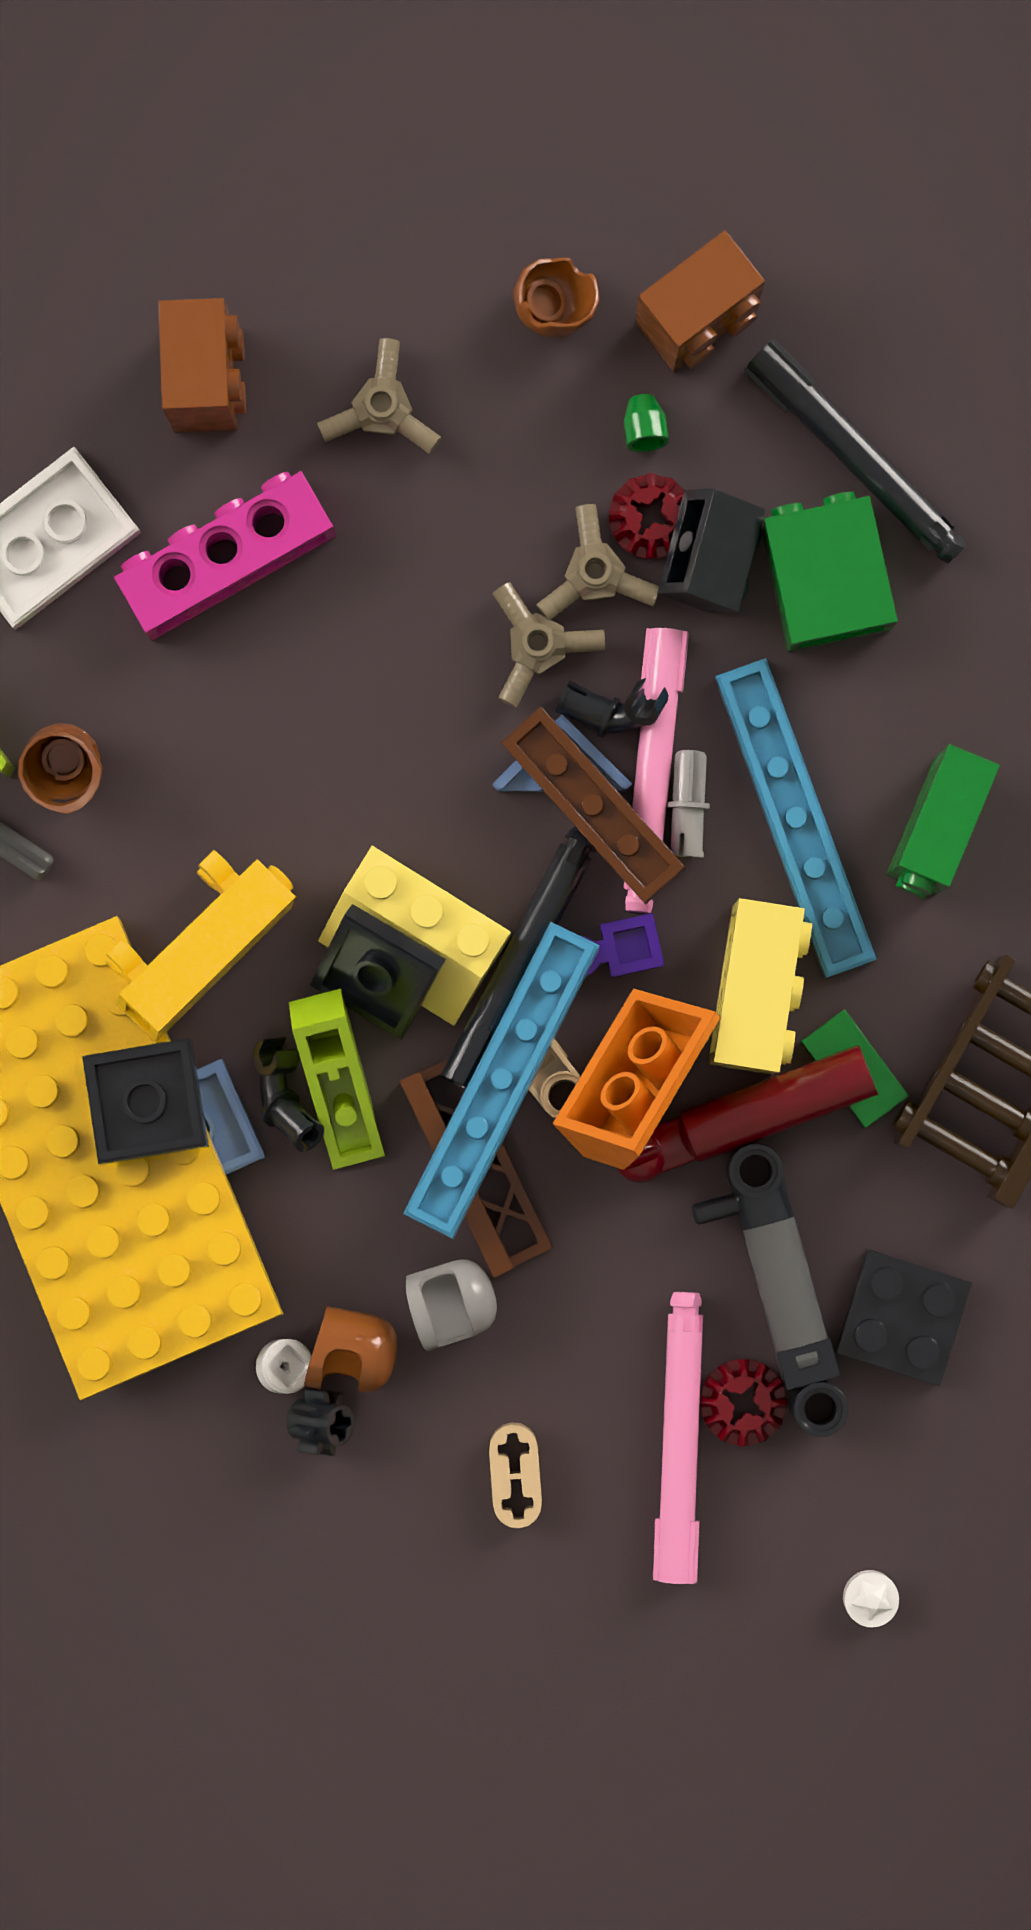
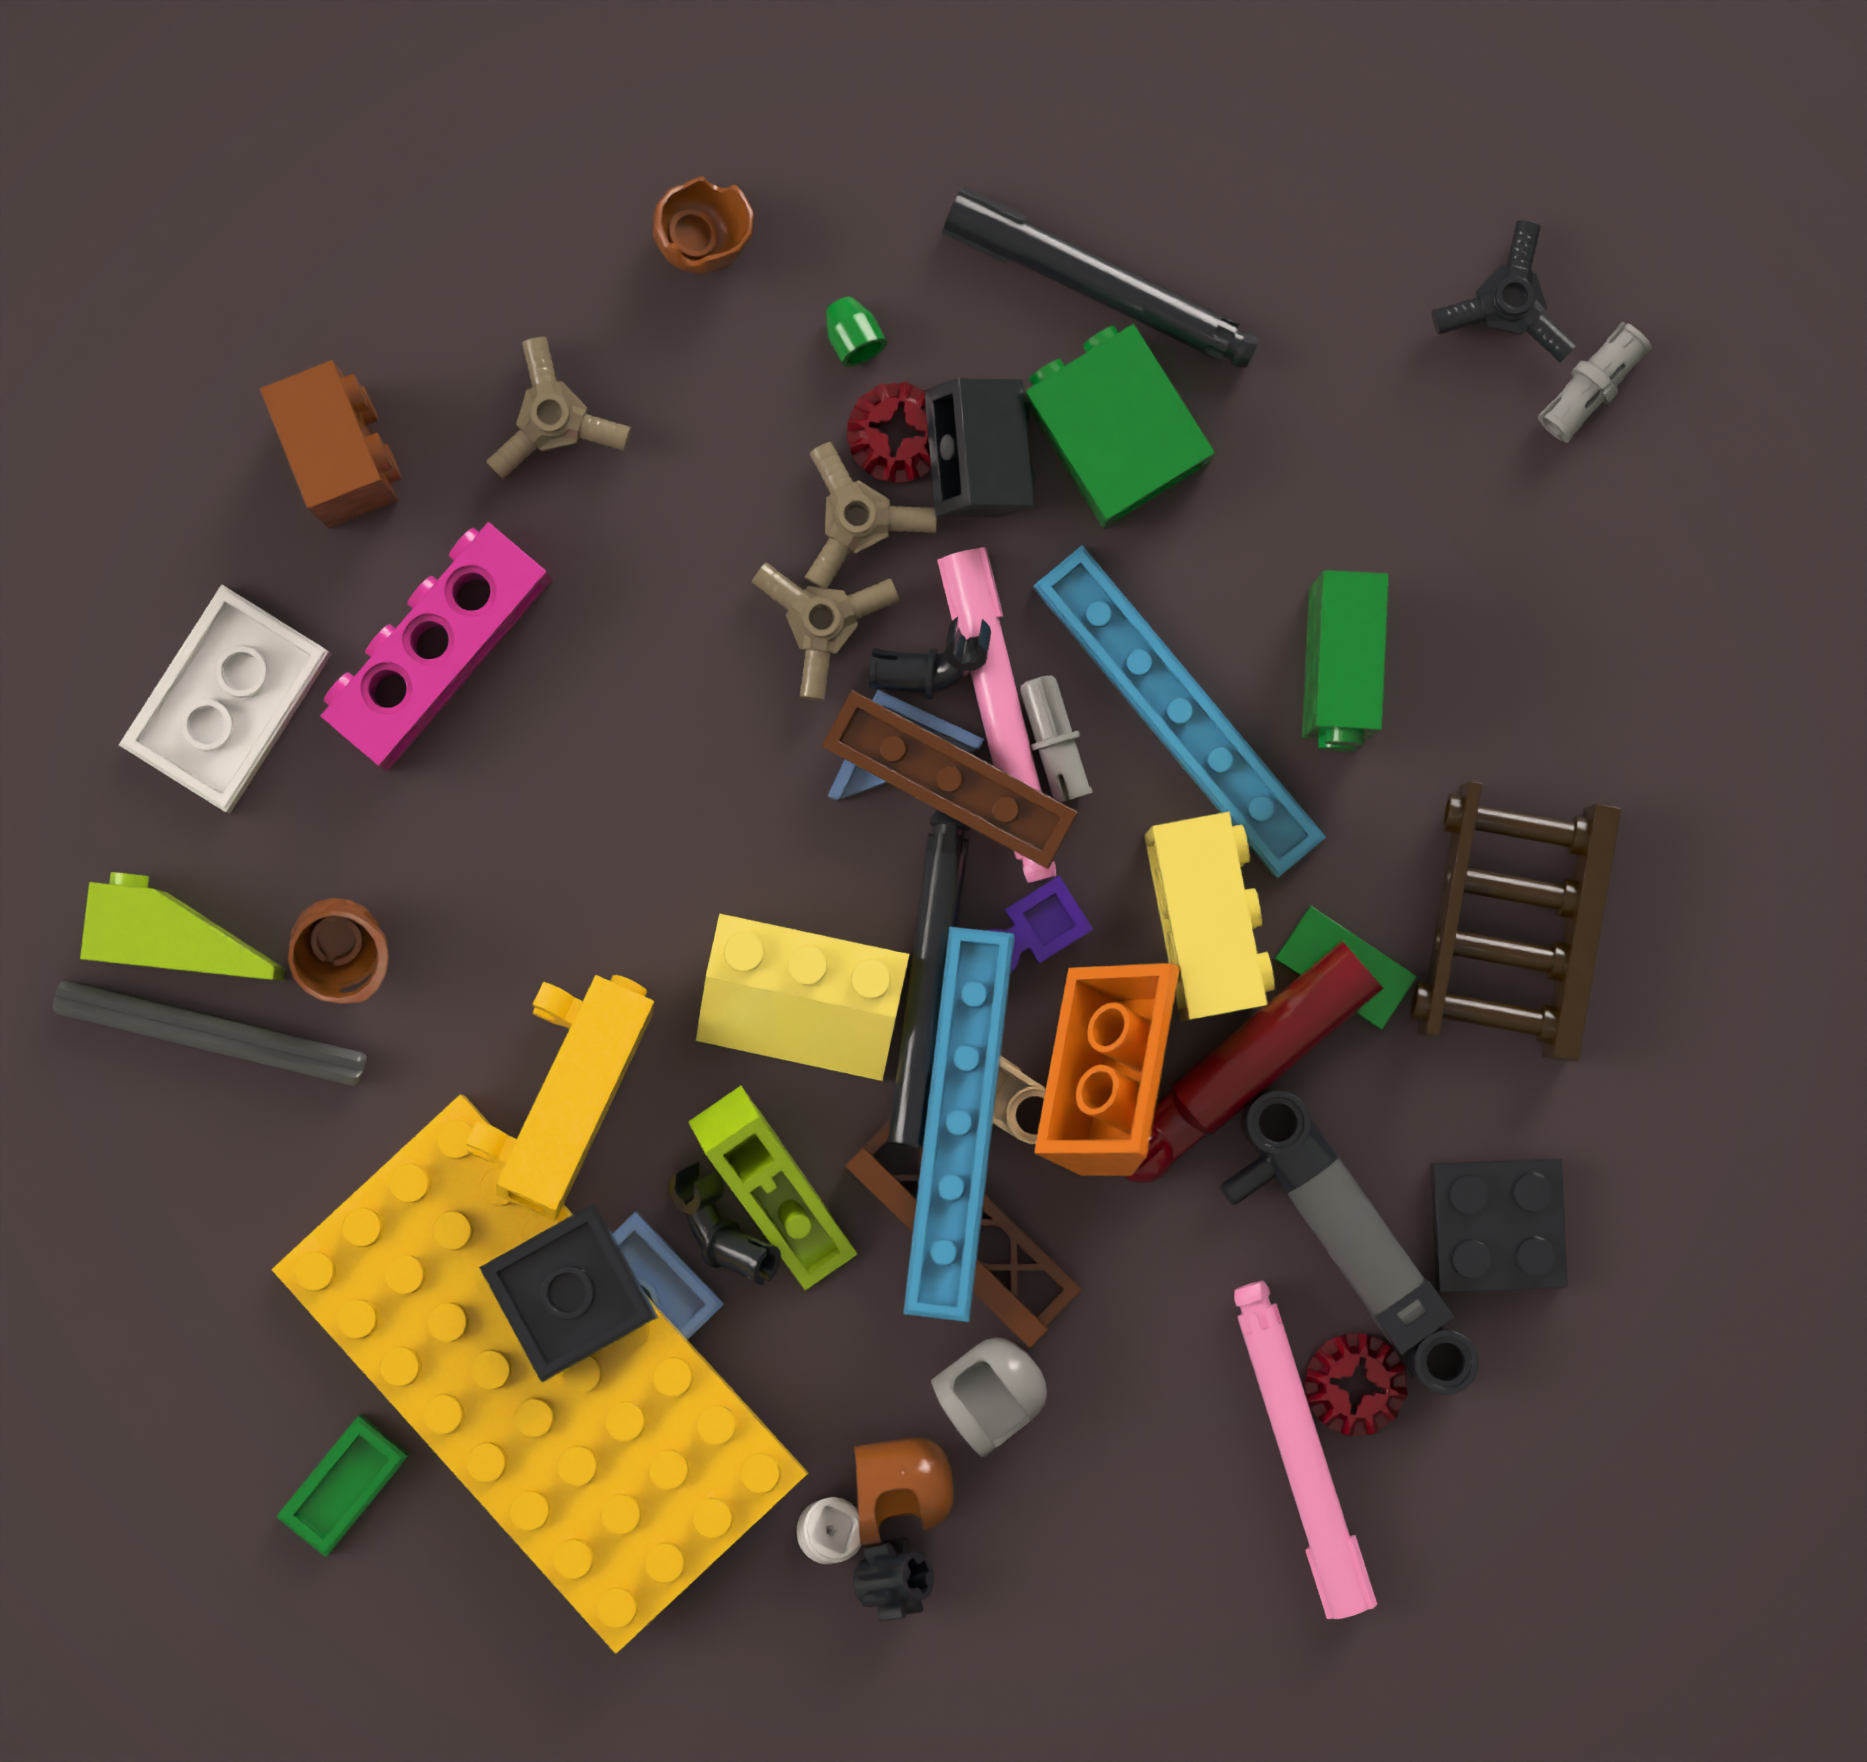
camera: 30 degrees left, 0 degrees up
(378, 971) = (776, 1050): black plate -> none
(502, 1476) = (1118, 1564): tan beam -> none
(700, 303) = (867, 174): dark orange brick -> none
(871, 1598) = (1576, 1551): white tile -> none

